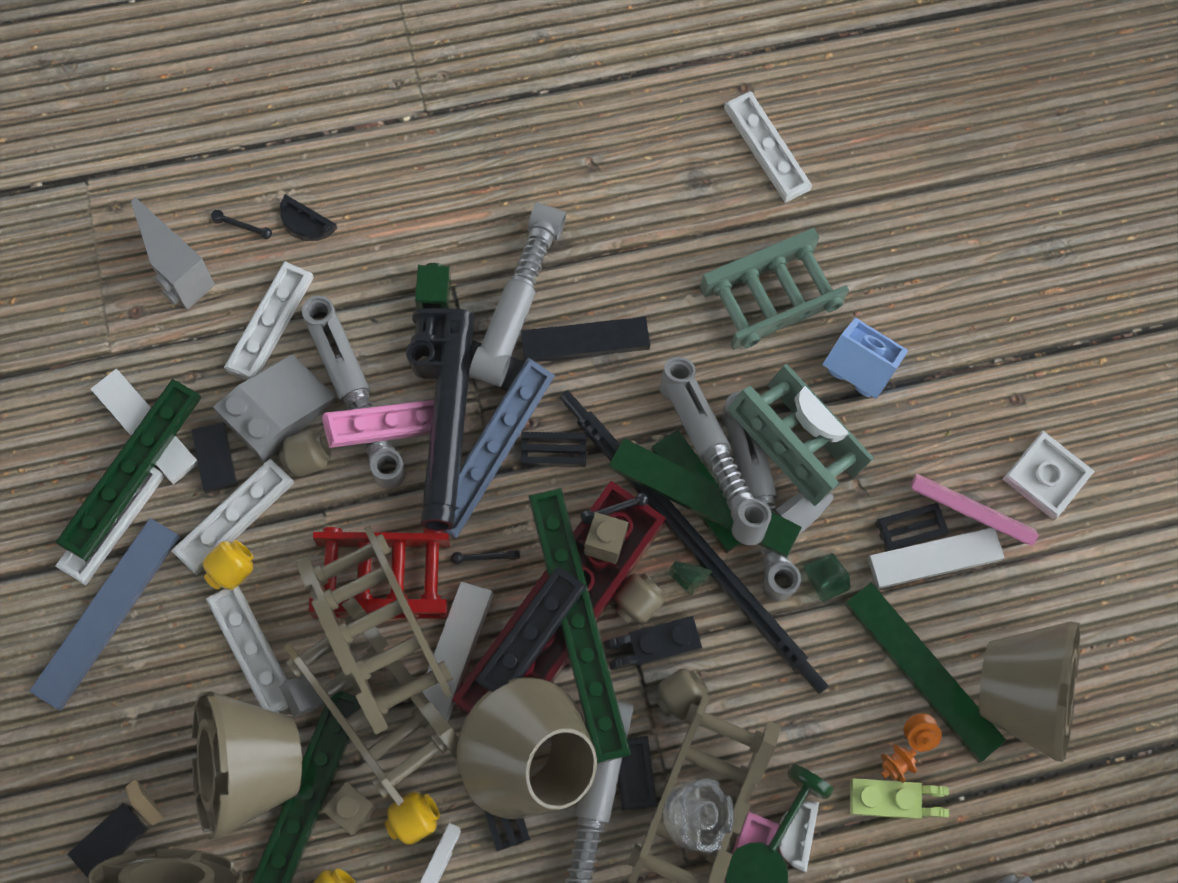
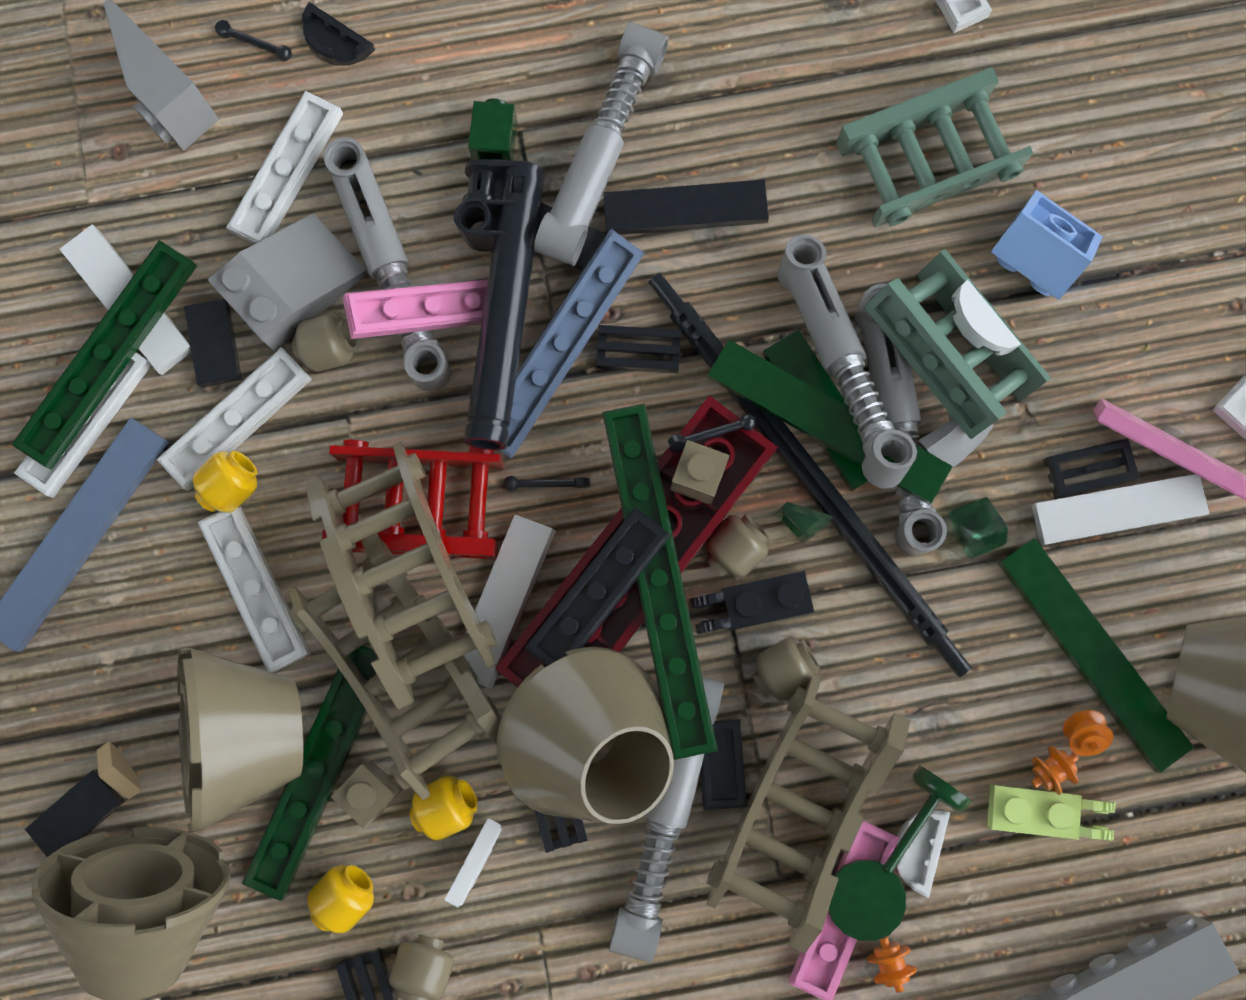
camera: 10 degrees right, 10 degrees up
(300, 695) = (307, 652): light grey tile -> none
(698, 815) = (798, 829): clear cylinder -> none

